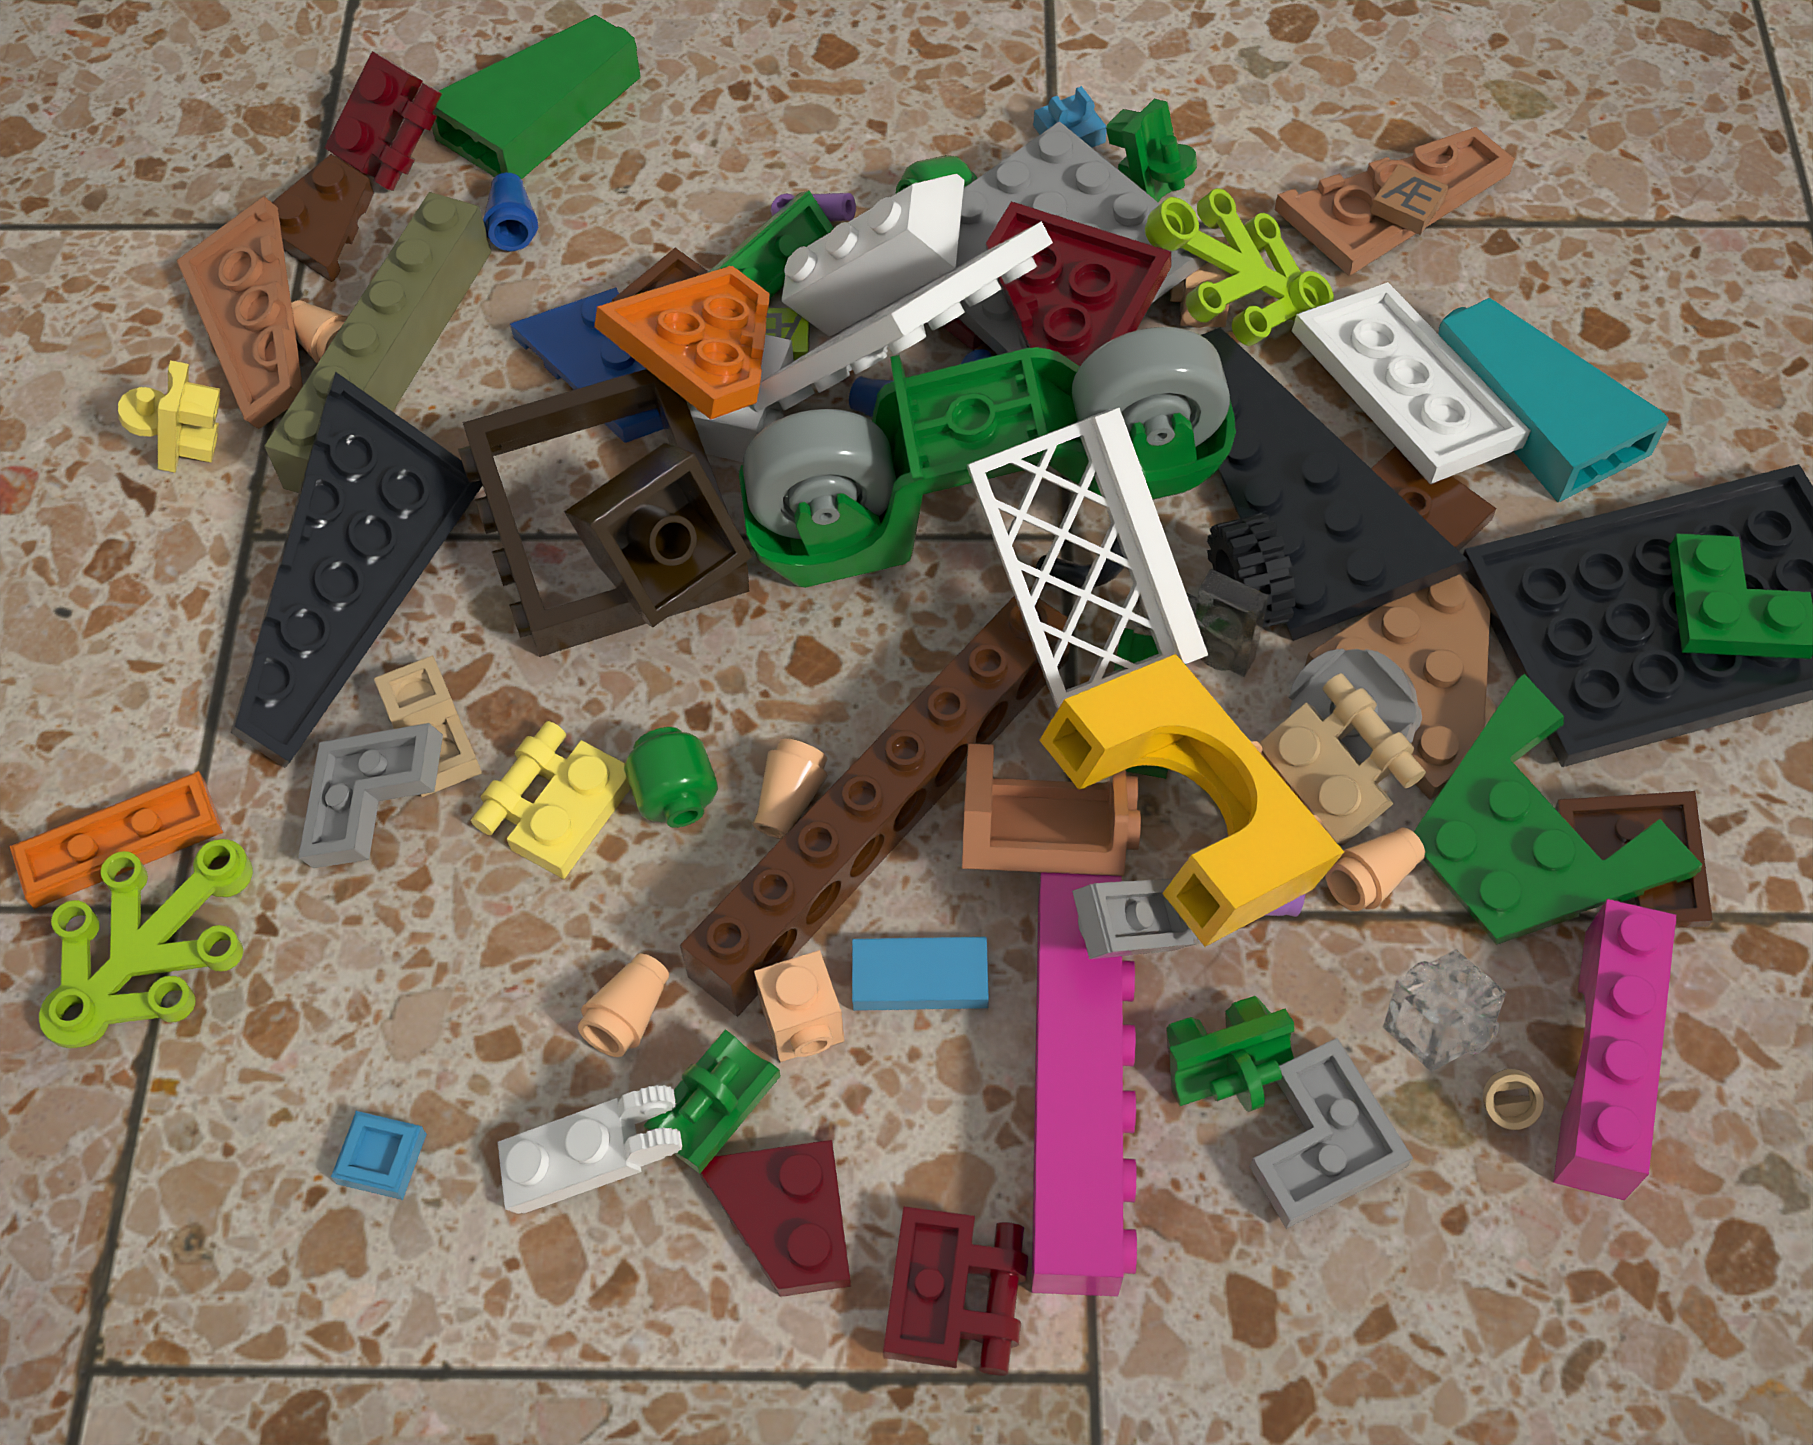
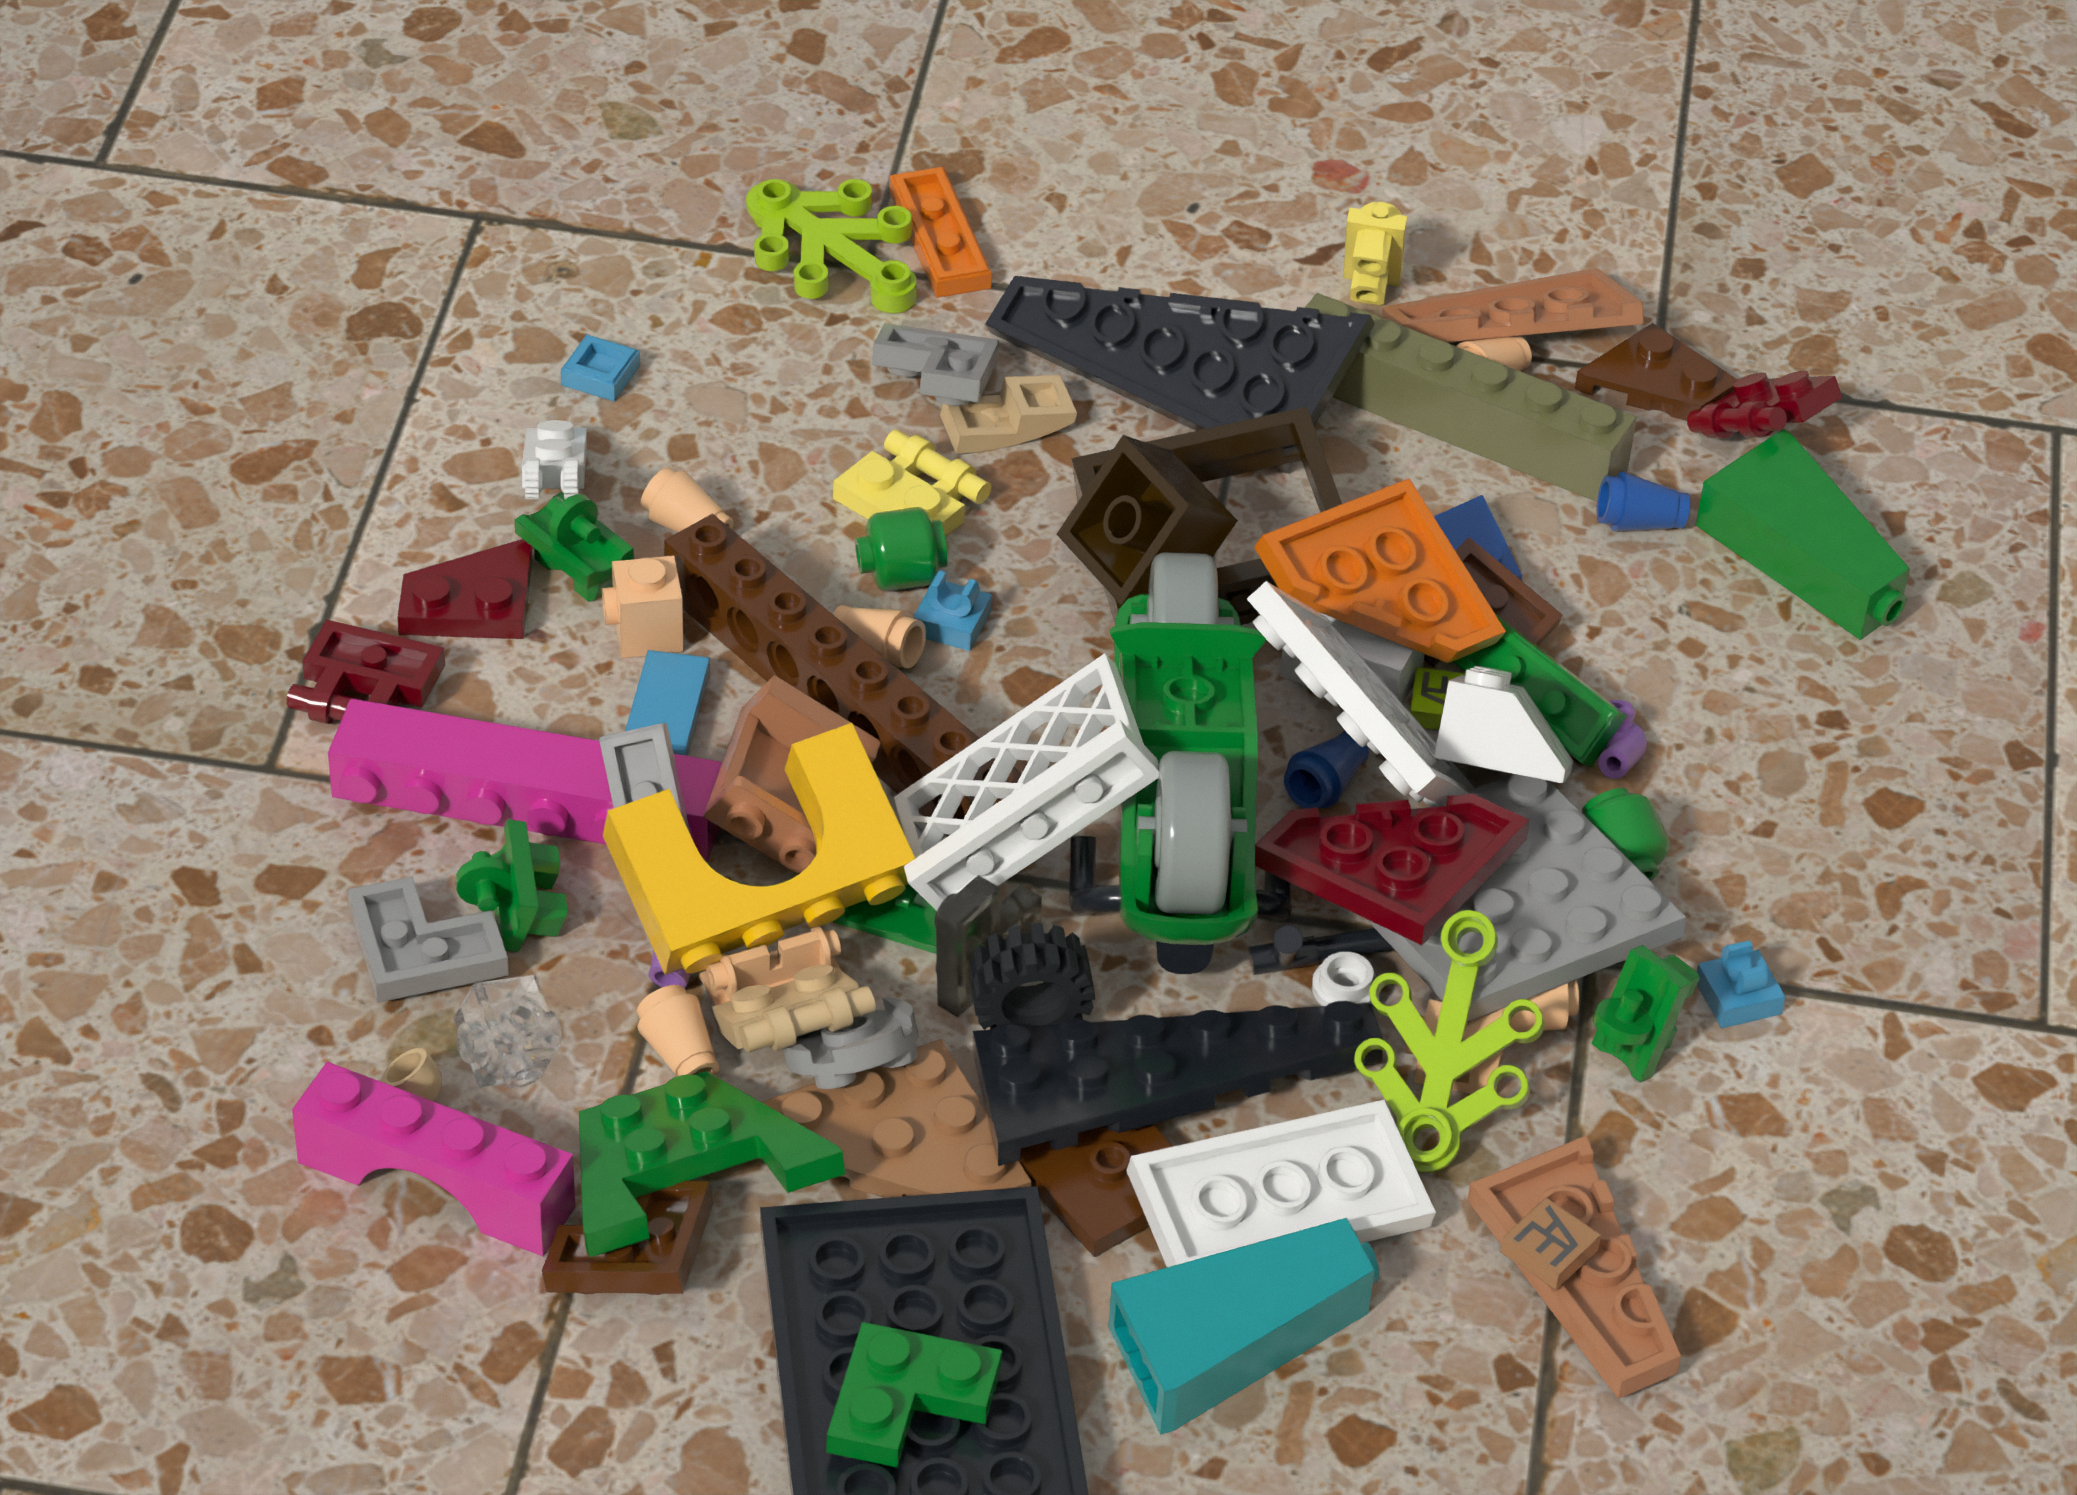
camera: 95 degrees right, 15 degrees down
(736, 732) = (954, 612): none -> dark azure tile

